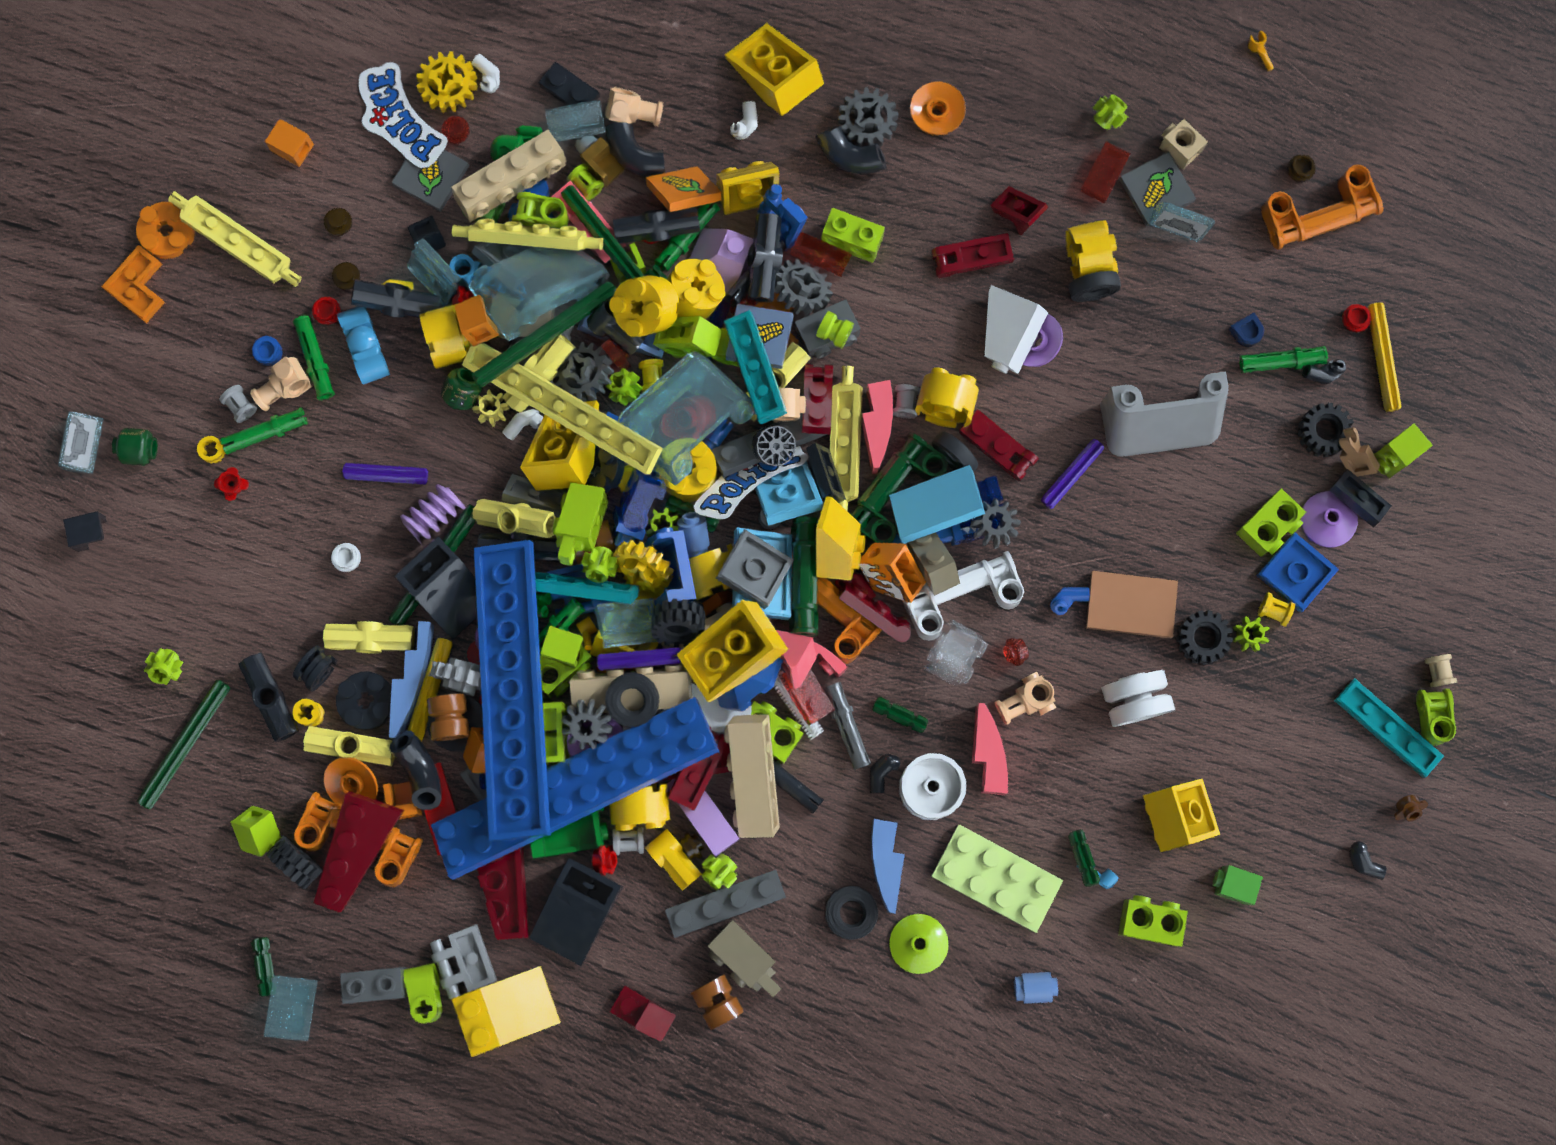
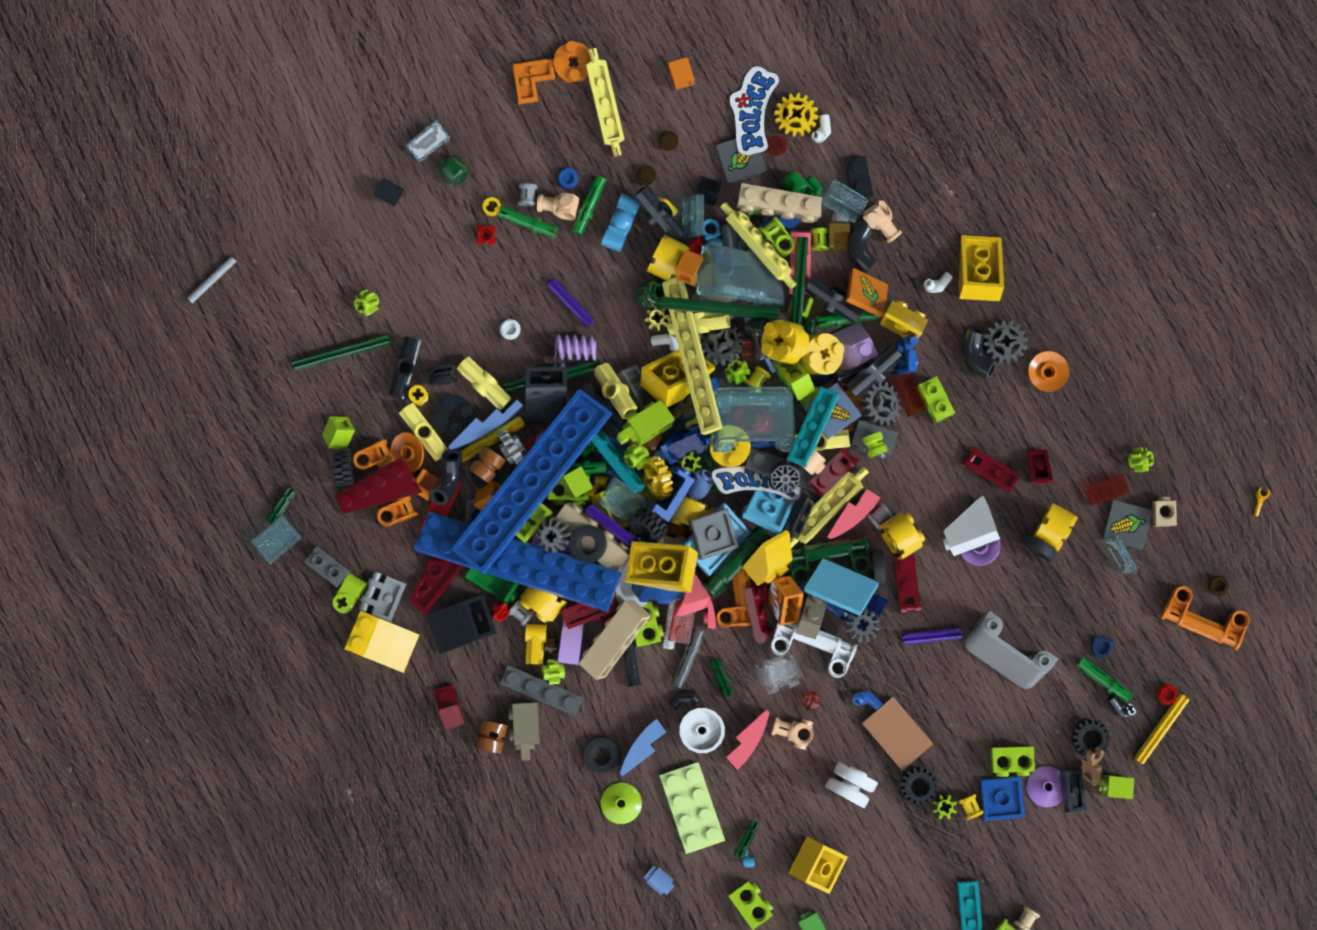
camera: 45 degrees right, 5 degrees up
(326, 310) = (618, 184): red plate -> none

